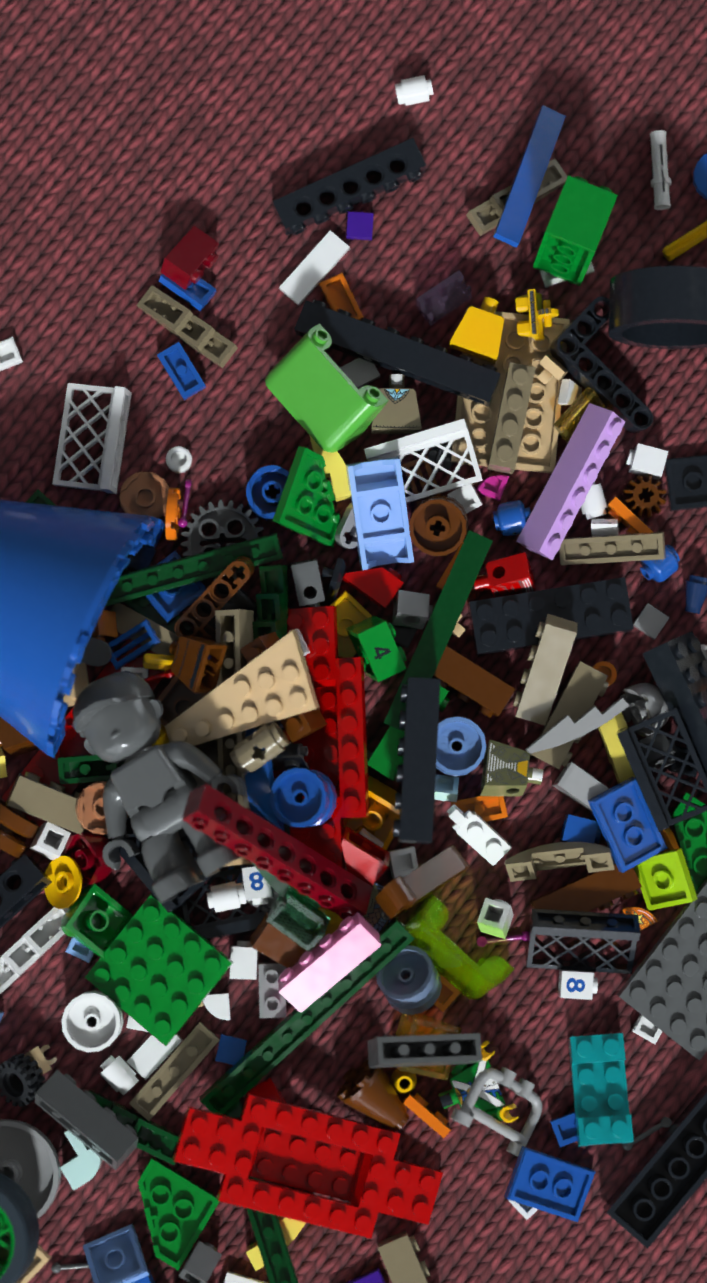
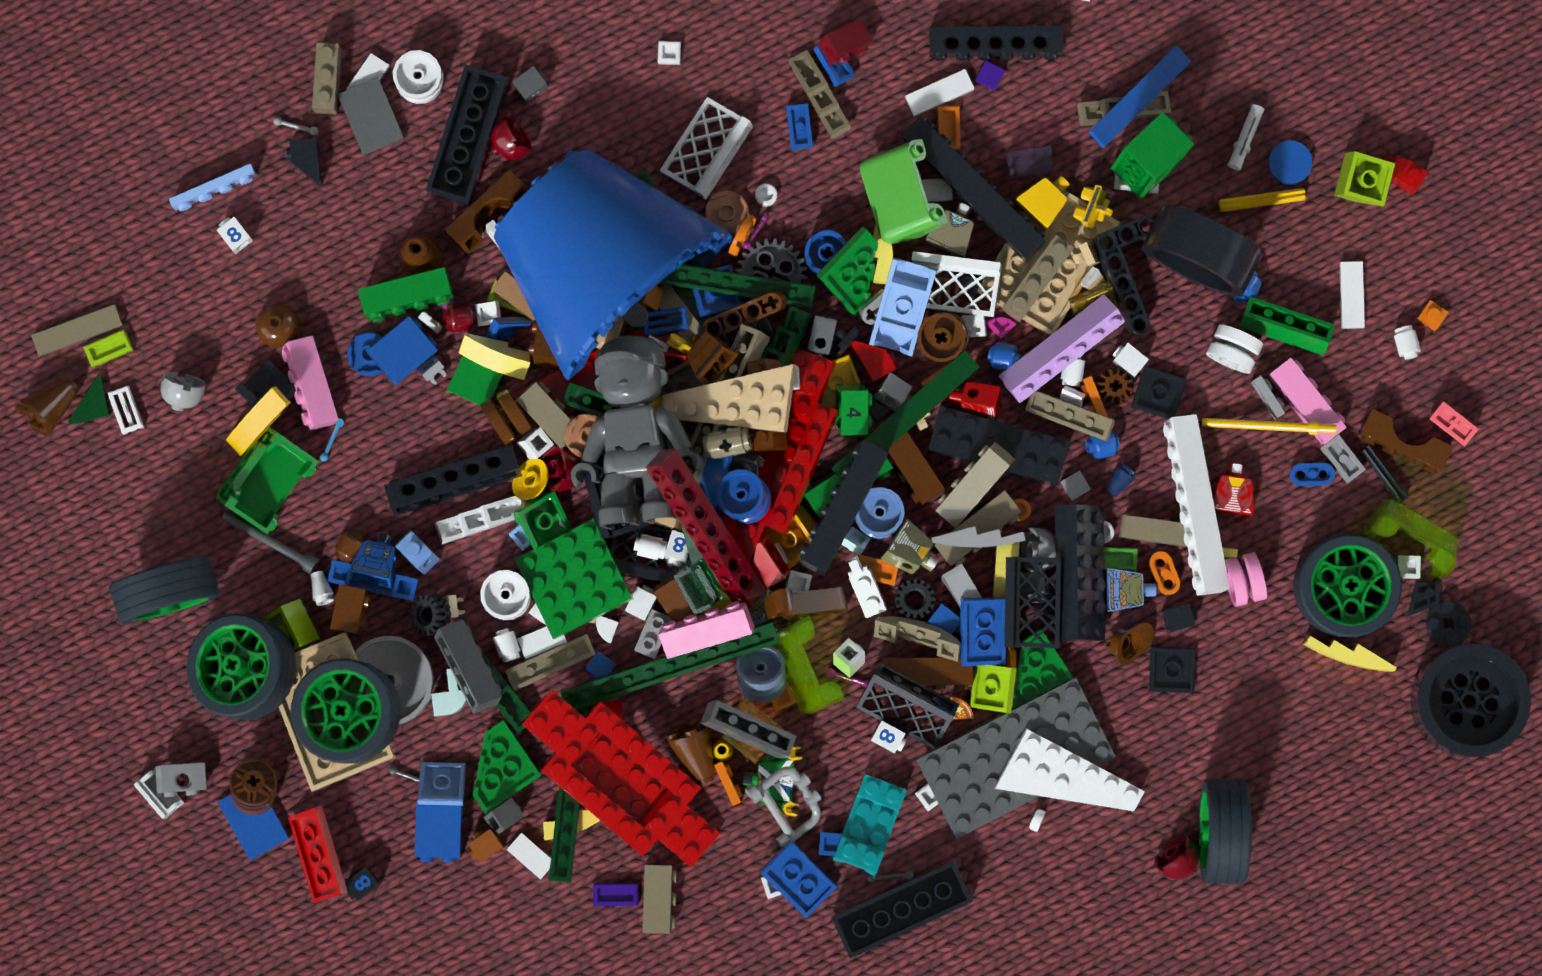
camera: 30 degrees right, 0 degrees up
(552, 821) = (914, 585): none -> black tyre

